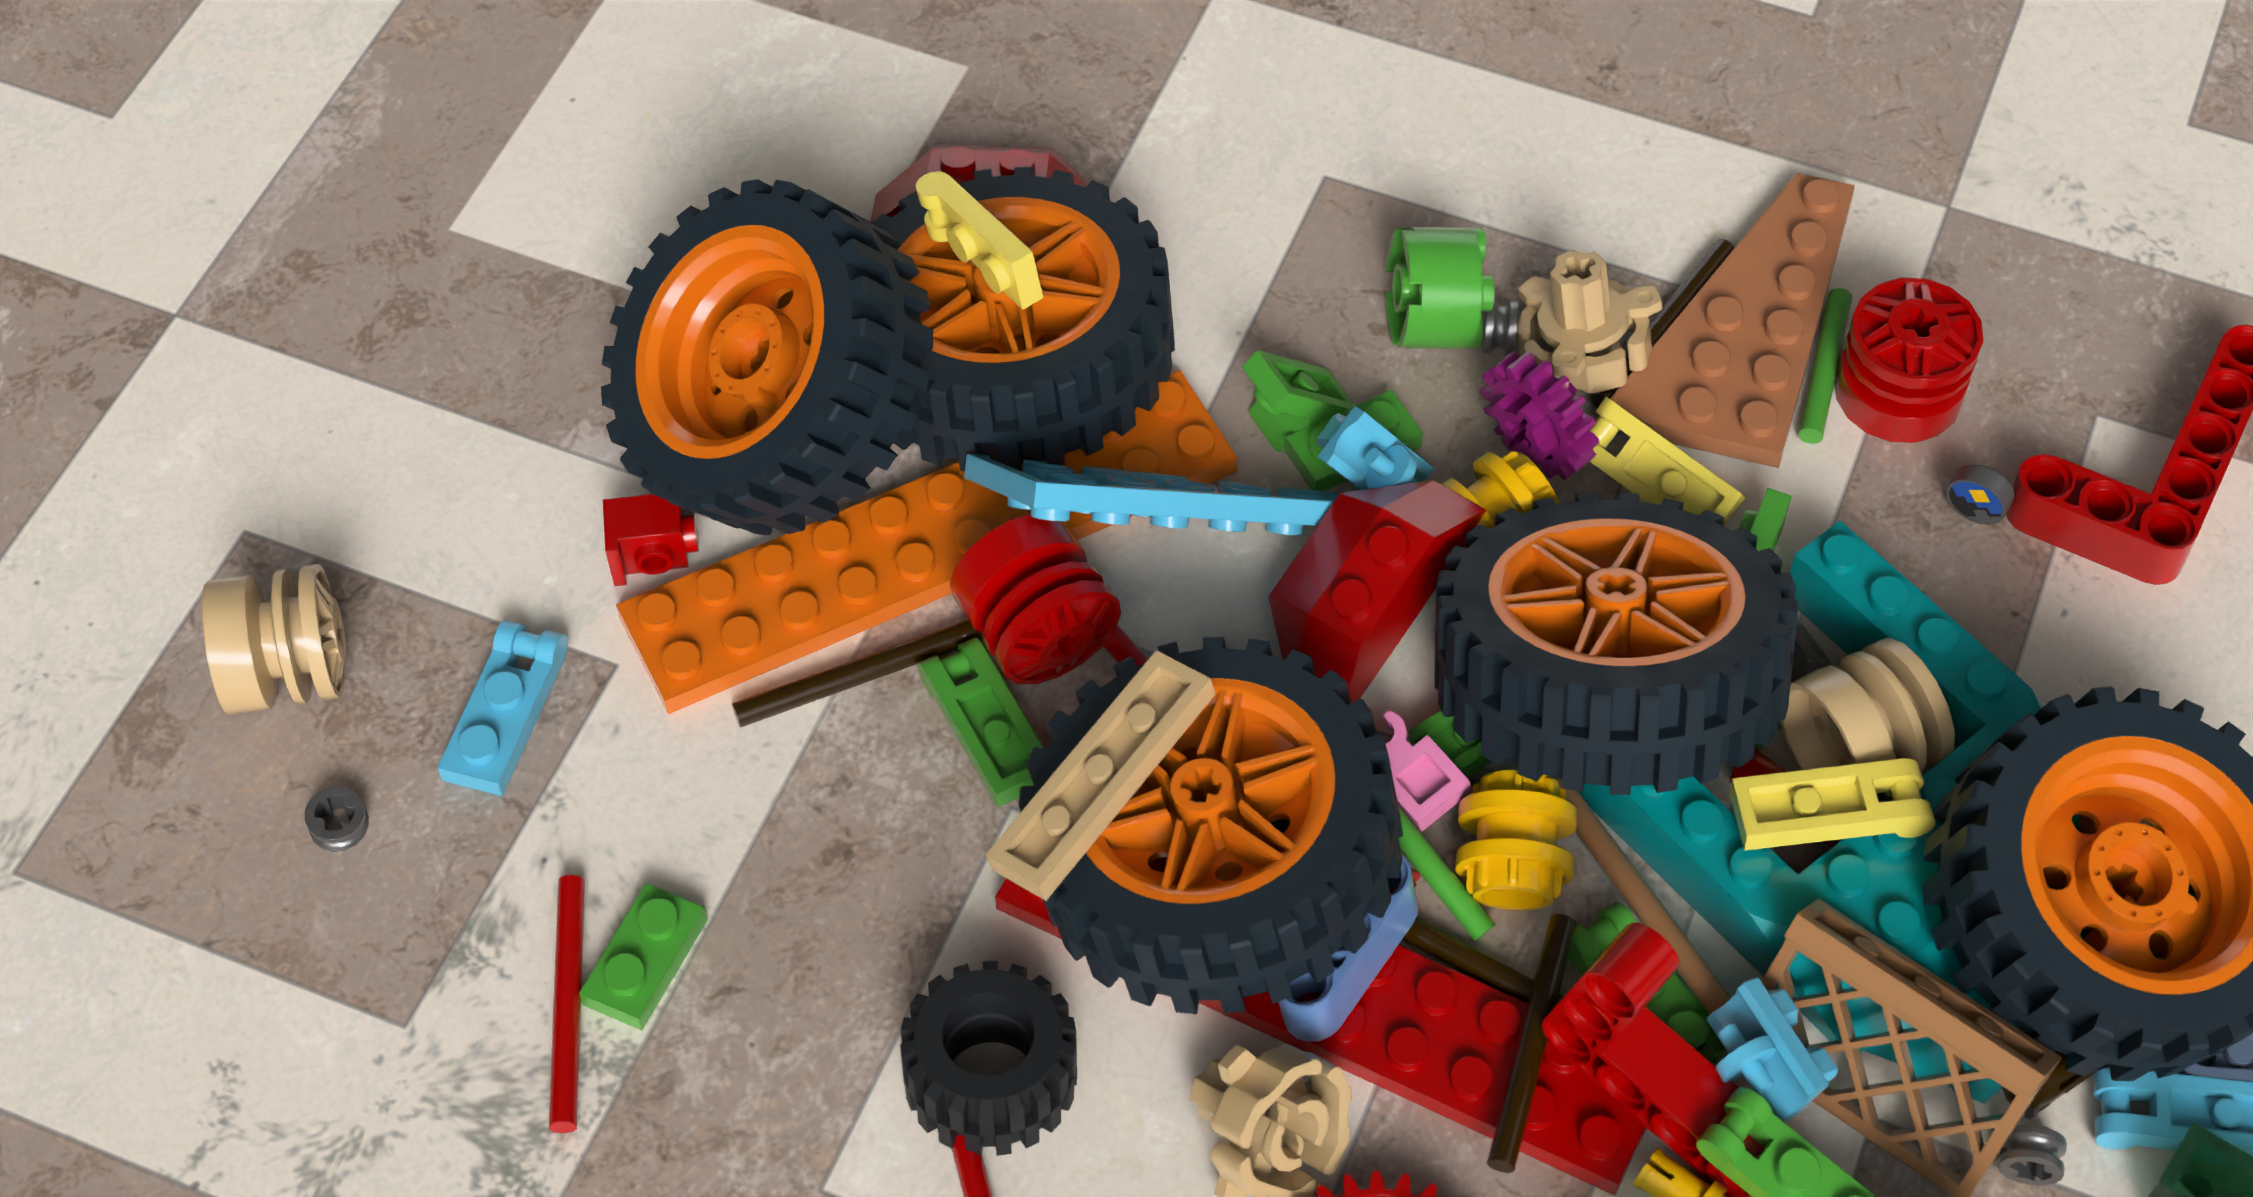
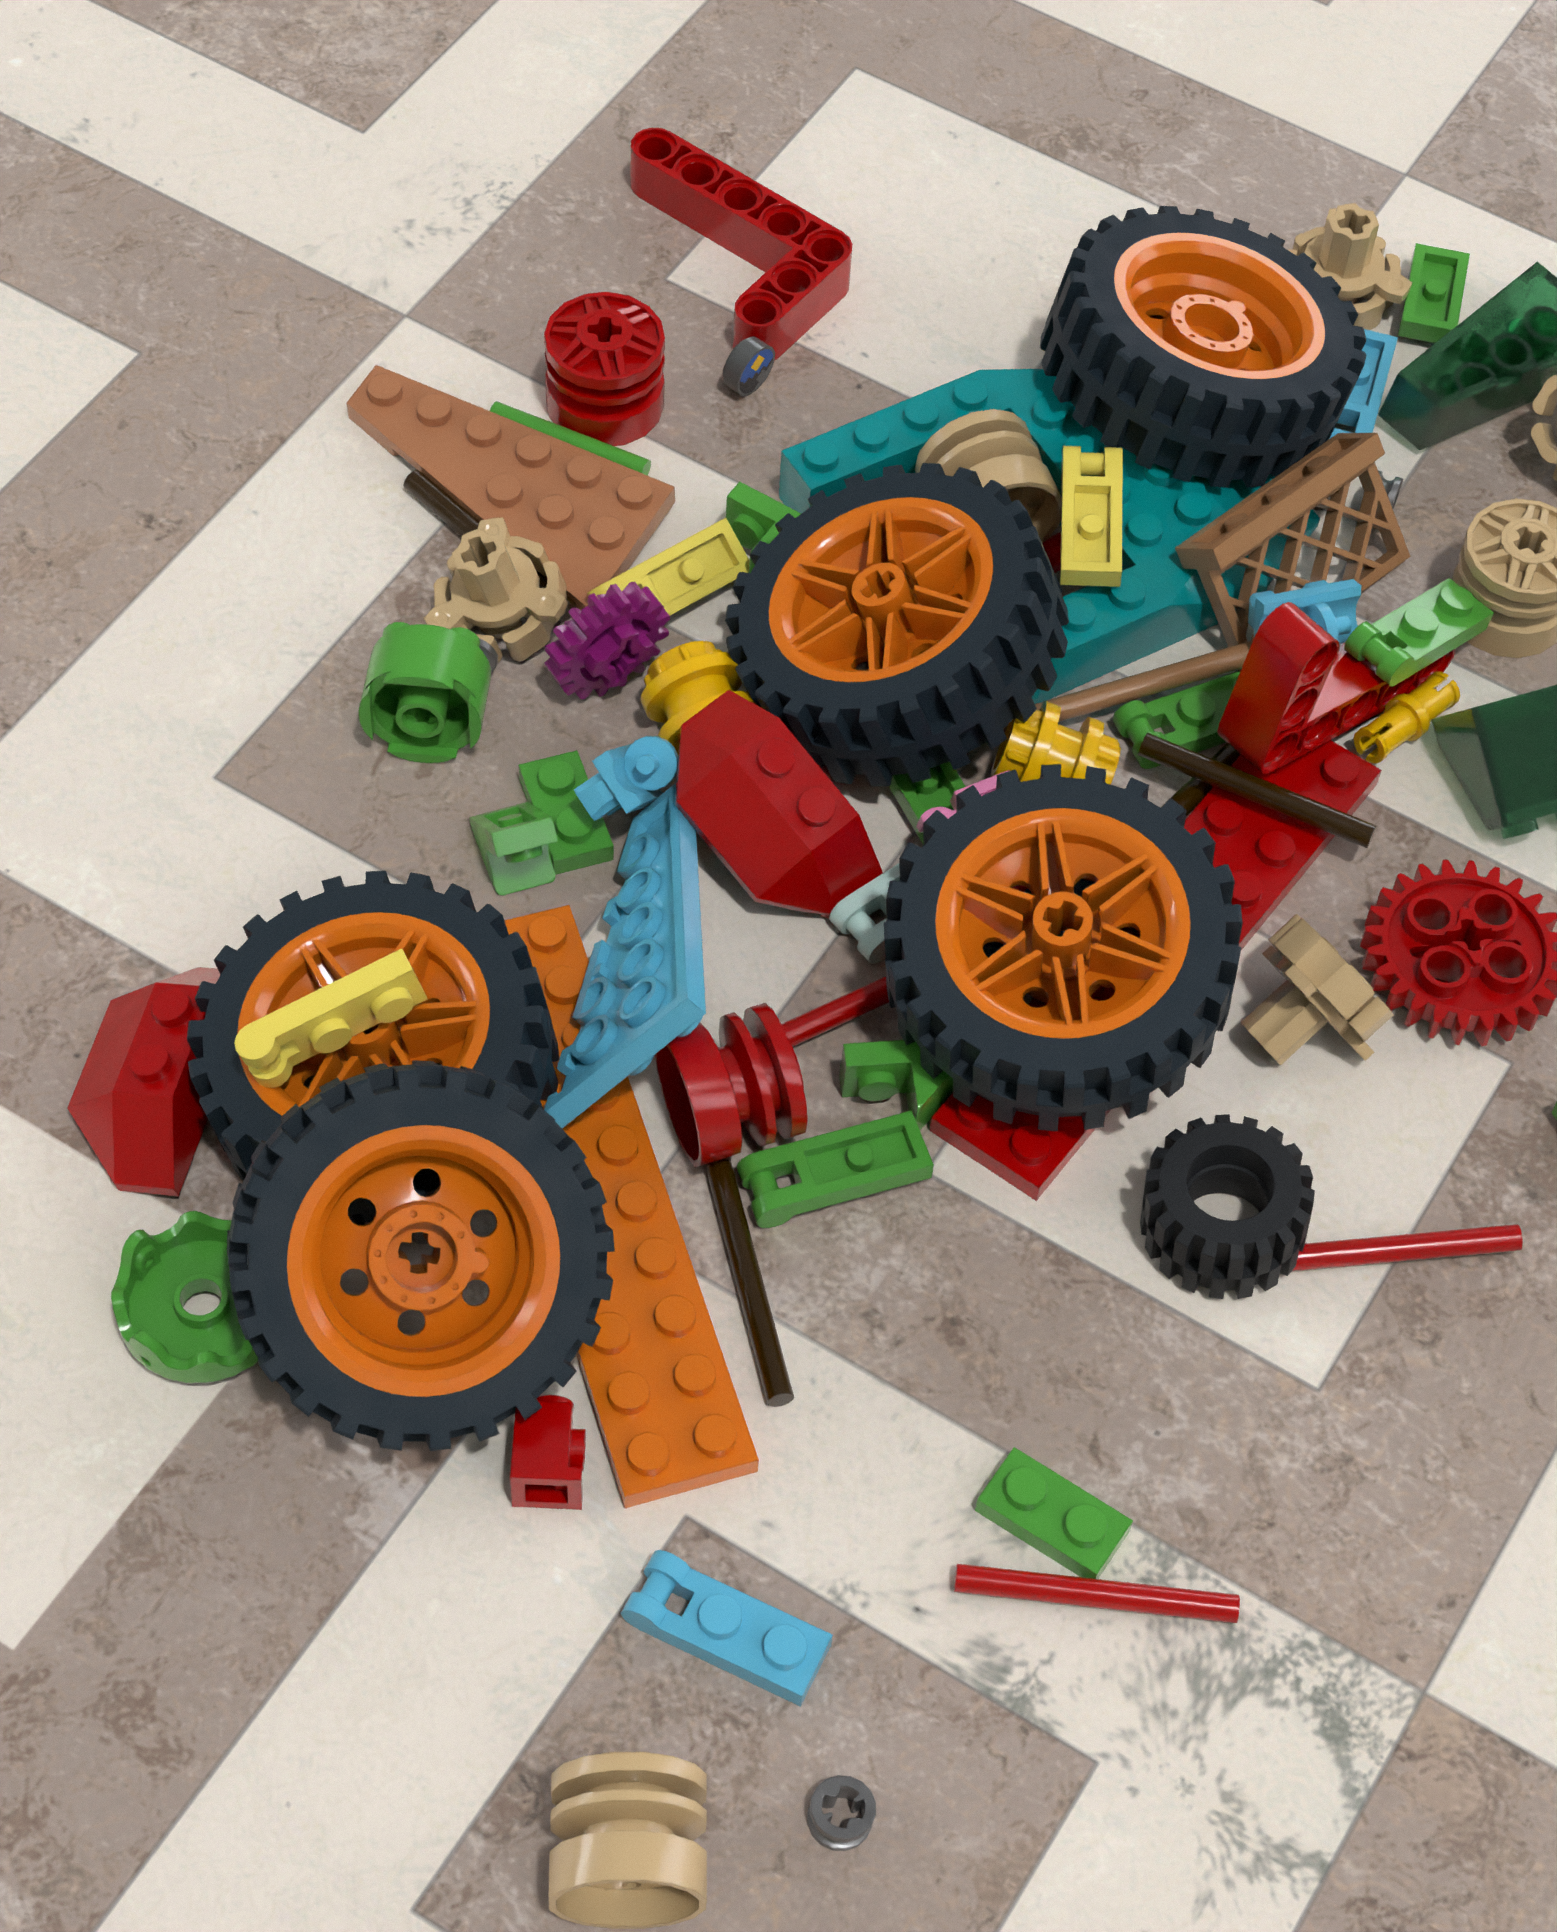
camera: 85 degrees left, 0 degrees up
(1100, 775) = (1045, 992): tan plate -> none

